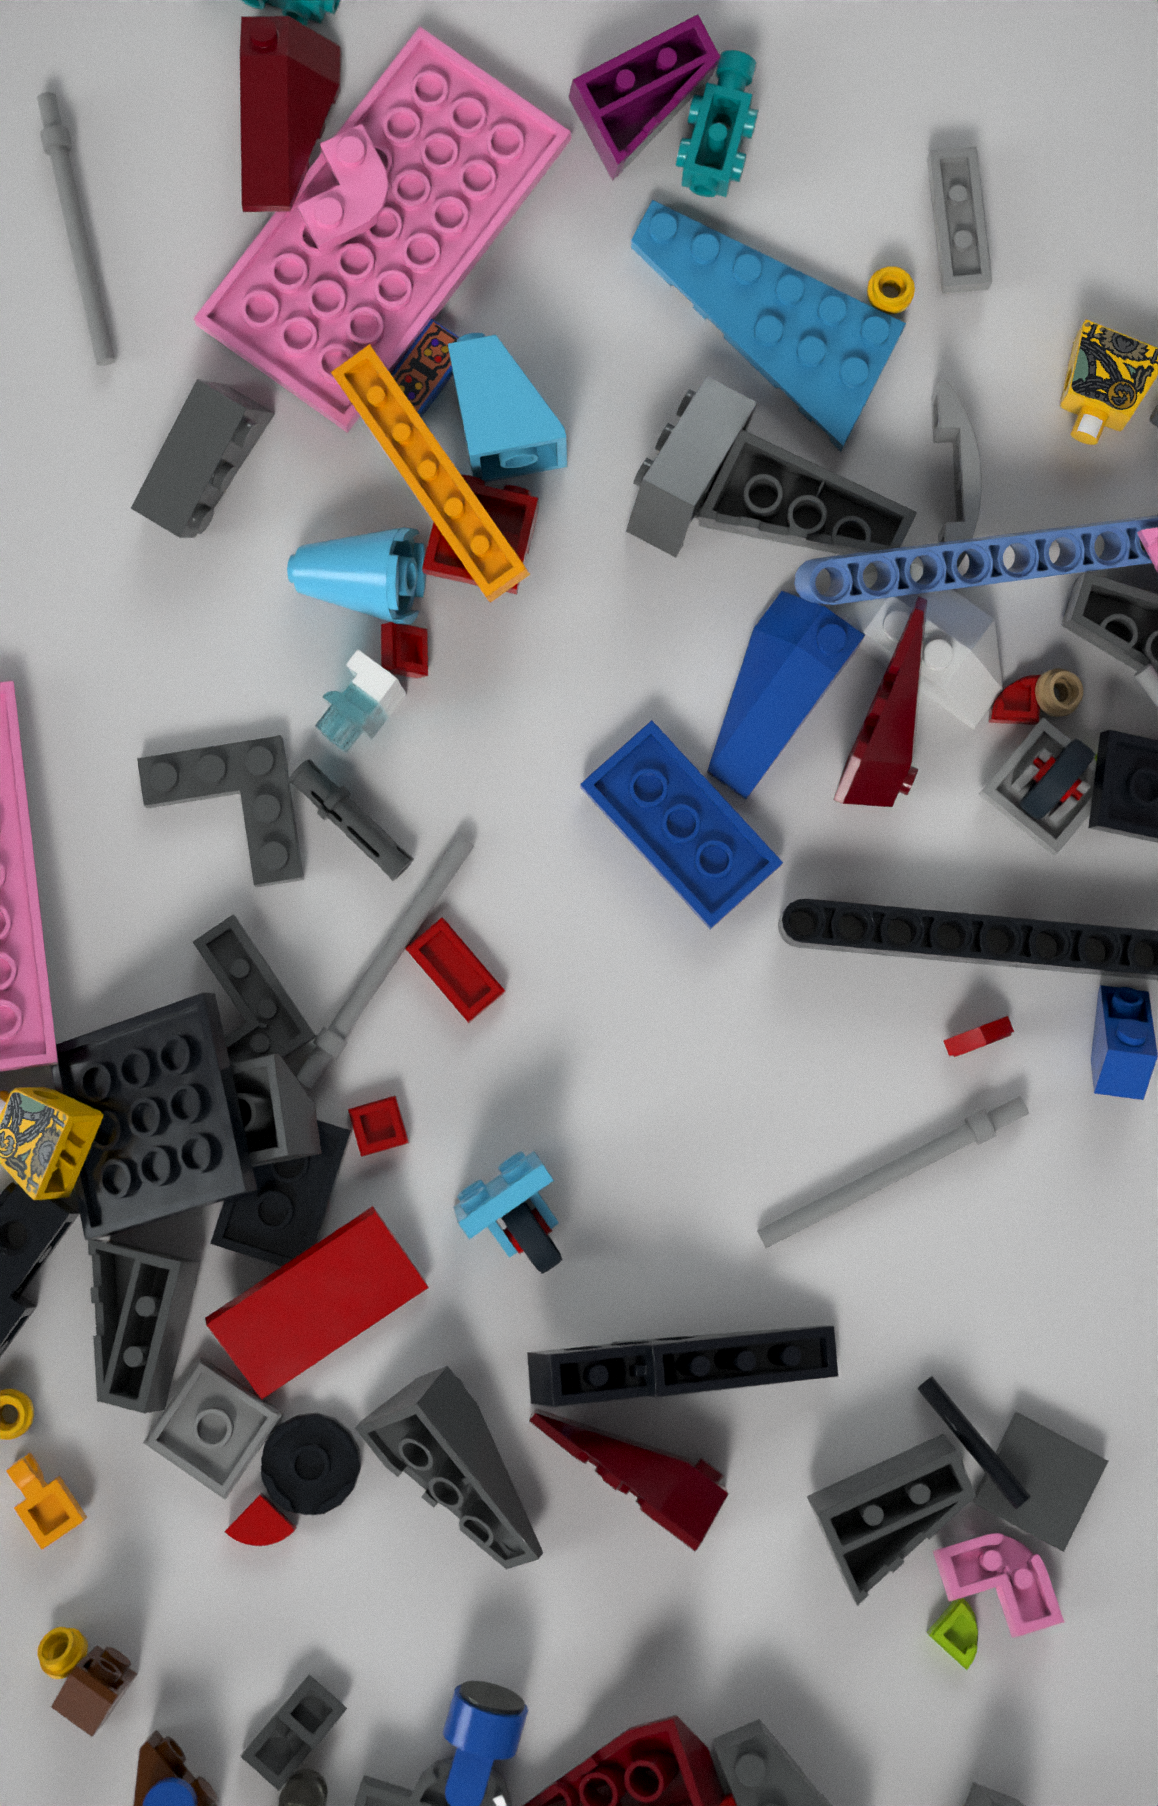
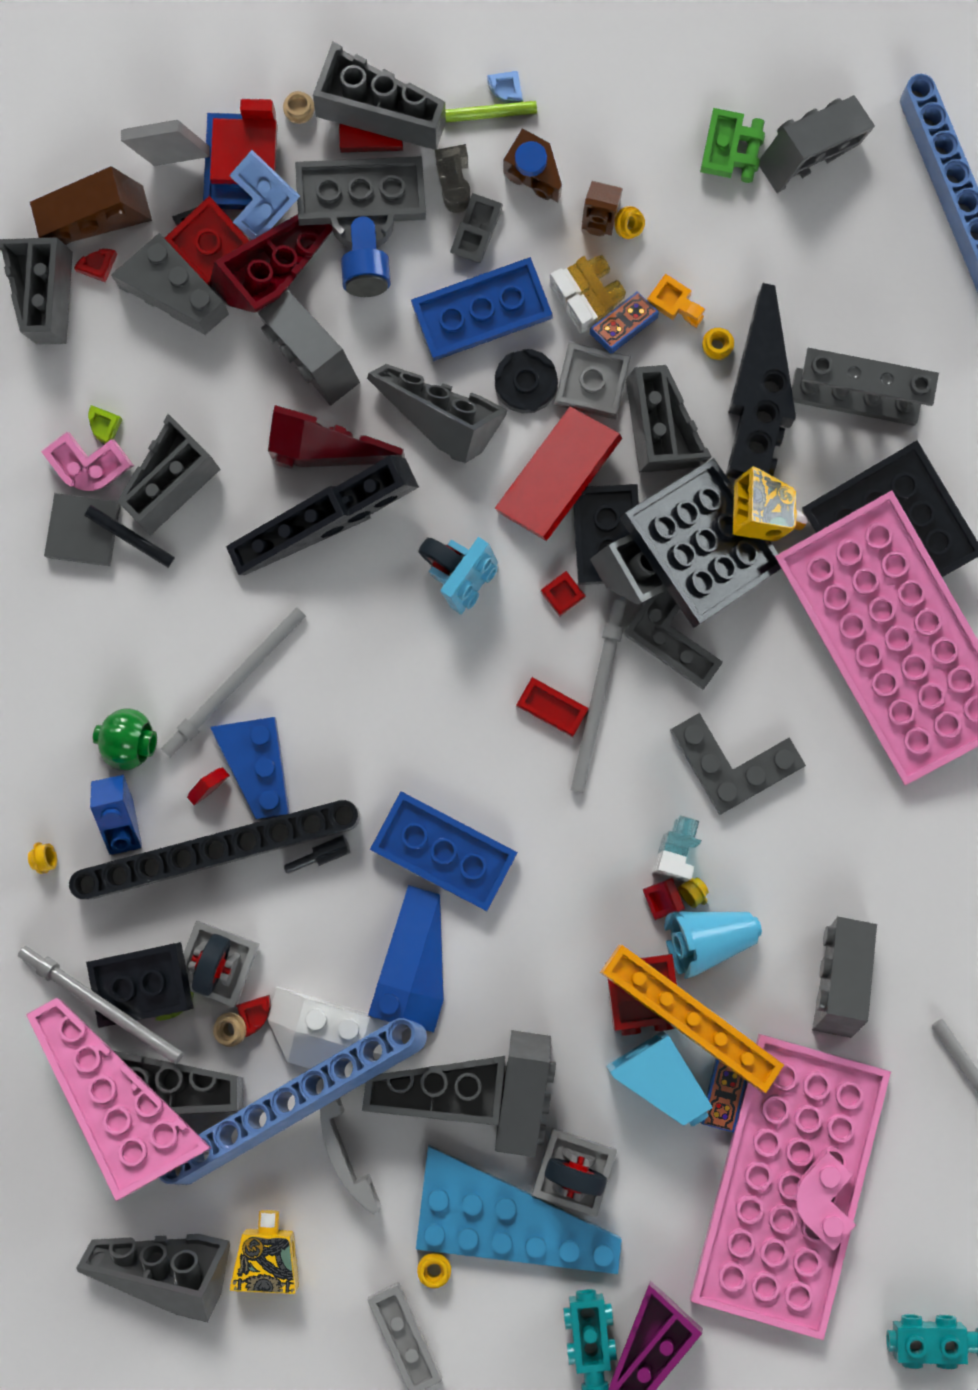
camera: 160 degrees right, 0 degrees up
(132, 1497) = (624, 322): none -> tile
(165, 1588) = (583, 292): none -> hips
(261, 1524) = (541, 336): red tile -> none
(285, 96) = (893, 1252): dark red wedge -> none
(333, 1599) = (481, 309): none -> blue plate
(335, 805) = (659, 778): dark grey pin -> none
(359, 638) = (694, 892): none -> yellow plate
(612, 1636) = (309, 347): none -> dark grey wedge
(661, 344) = (574, 1172): none -> light grey plate
(851, 882) = (321, 854): none -> black axle
(886, 741) = (330, 951): dark red wedge -> none
(899, 1043) = (257, 764): none -> blue wing
(1075, 1144) = (125, 739): none -> green plant

